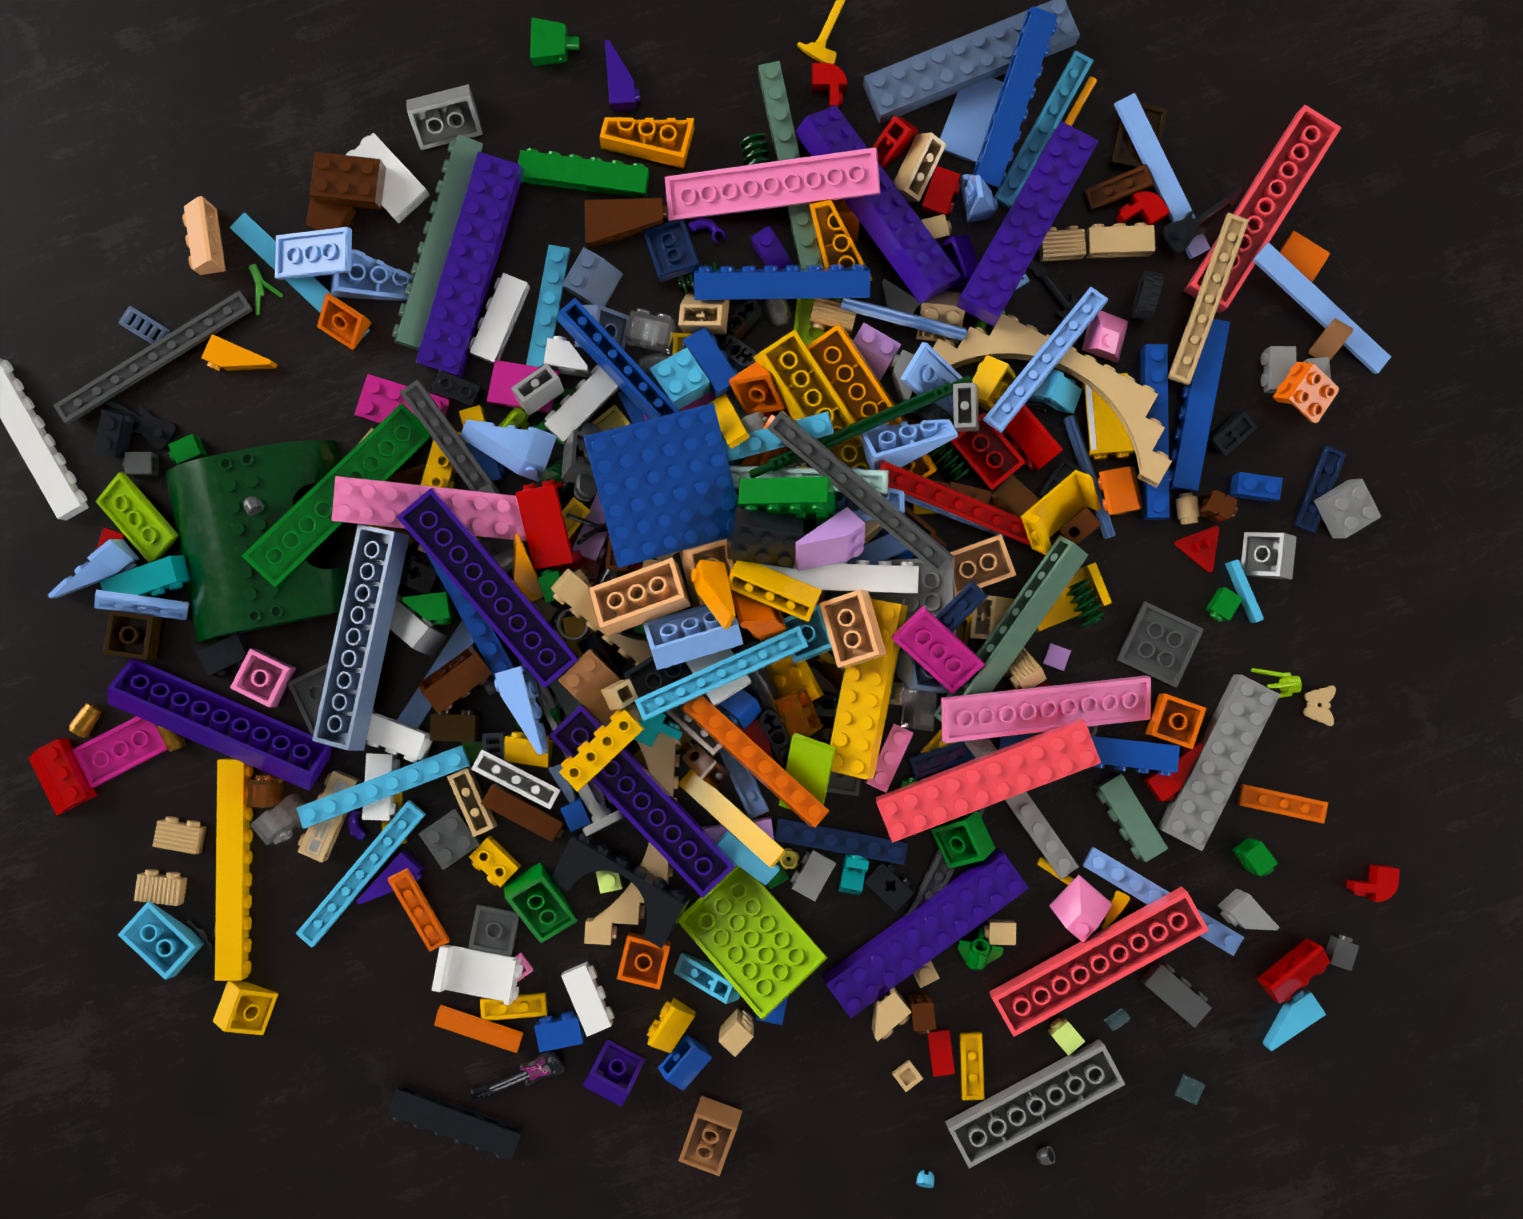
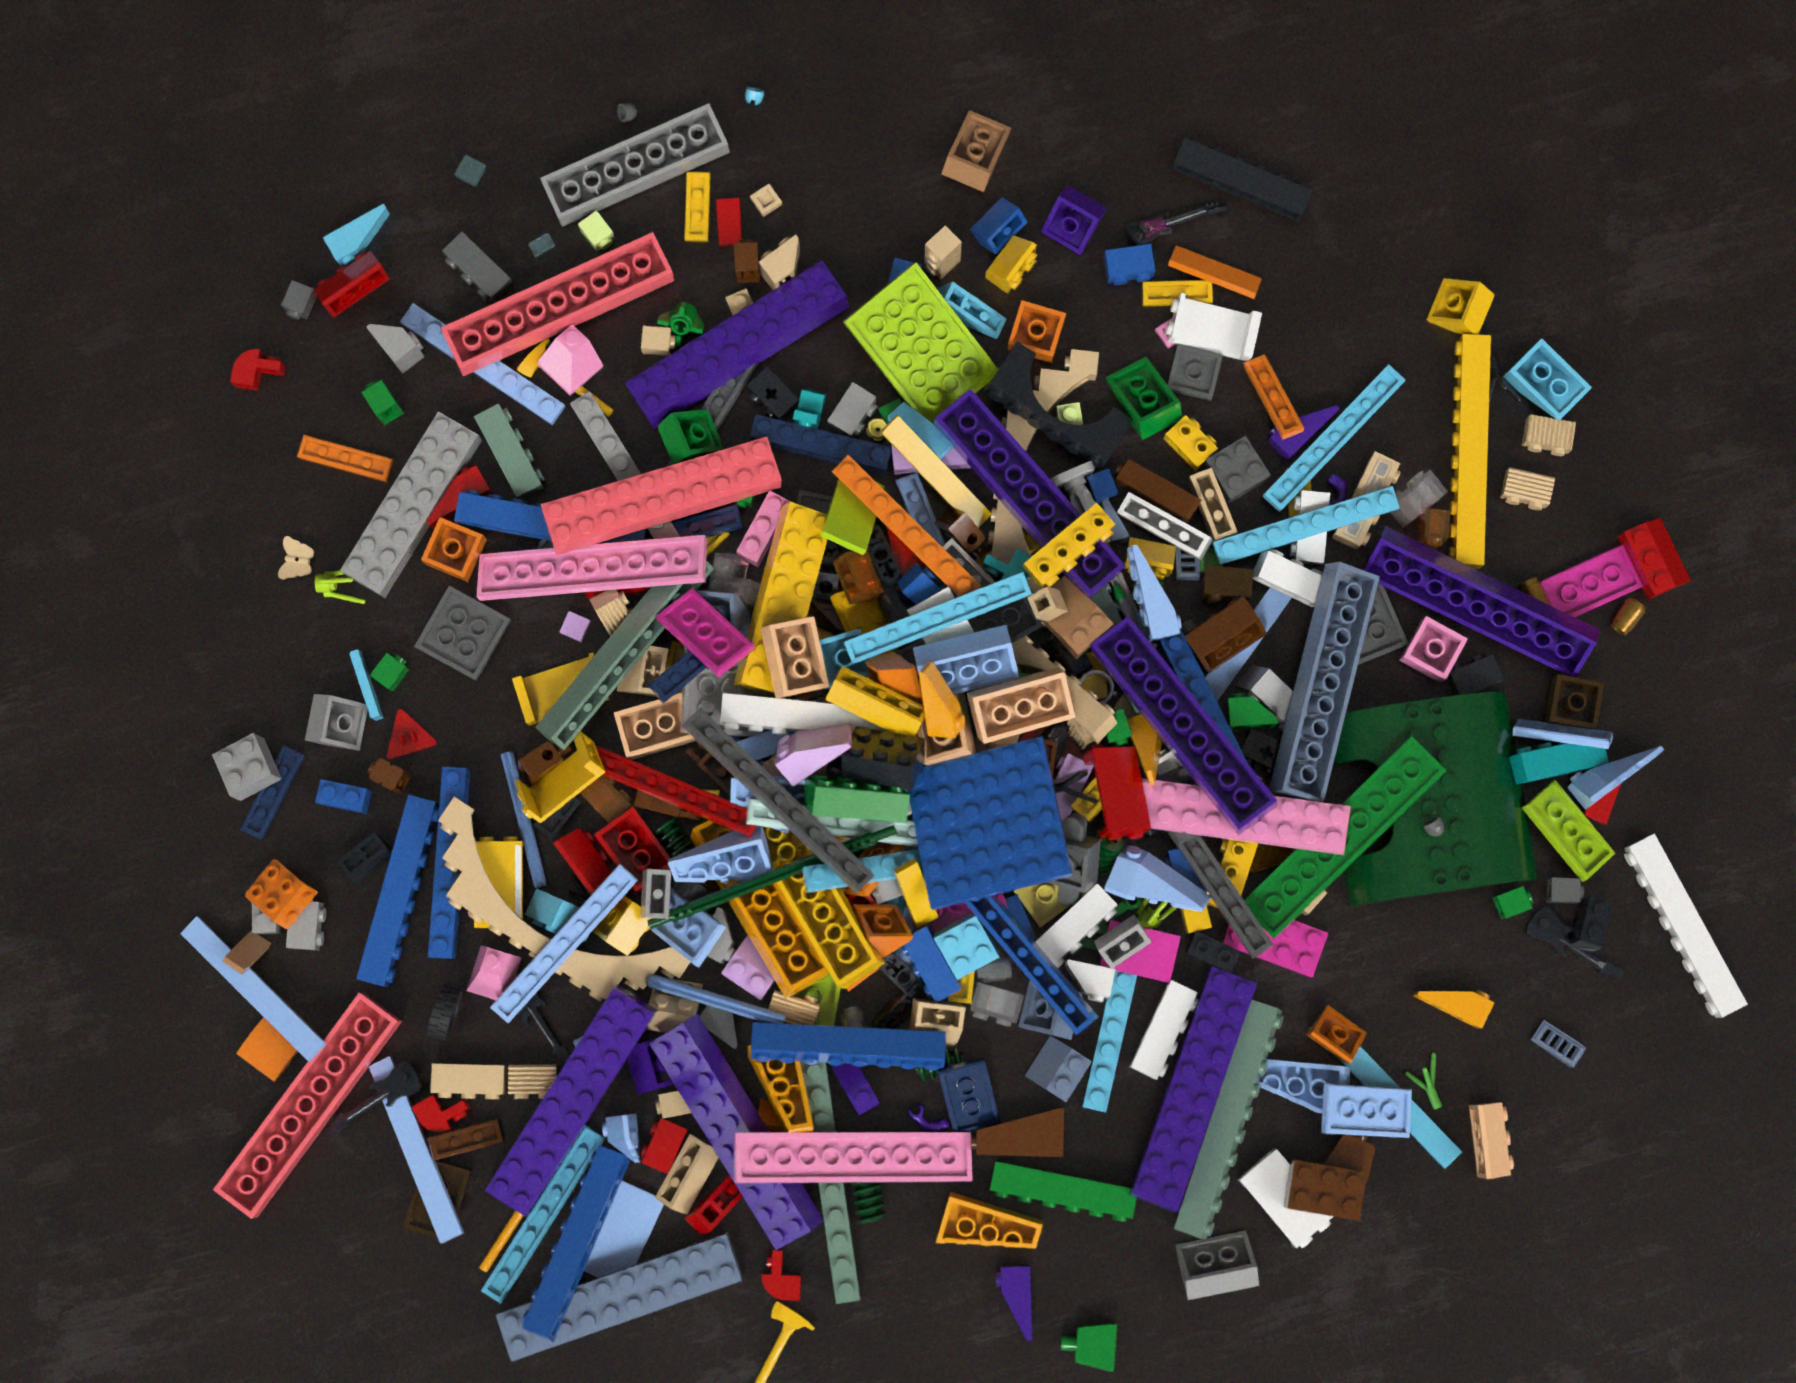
camera: 170 degrees left, 5 degrees down
(153, 357) = (1548, 1008): dark grey plate -> none
(588, 998) = (1097, 296): white brick -> none
(1085, 603) = (539, 681): dark green piece -> none
(1120, 490) = (492, 798): orange slope -> none
(1187, 508) = (420, 777): tan brick -> none
(1208, 299) = (379, 1003): tan tile -> none

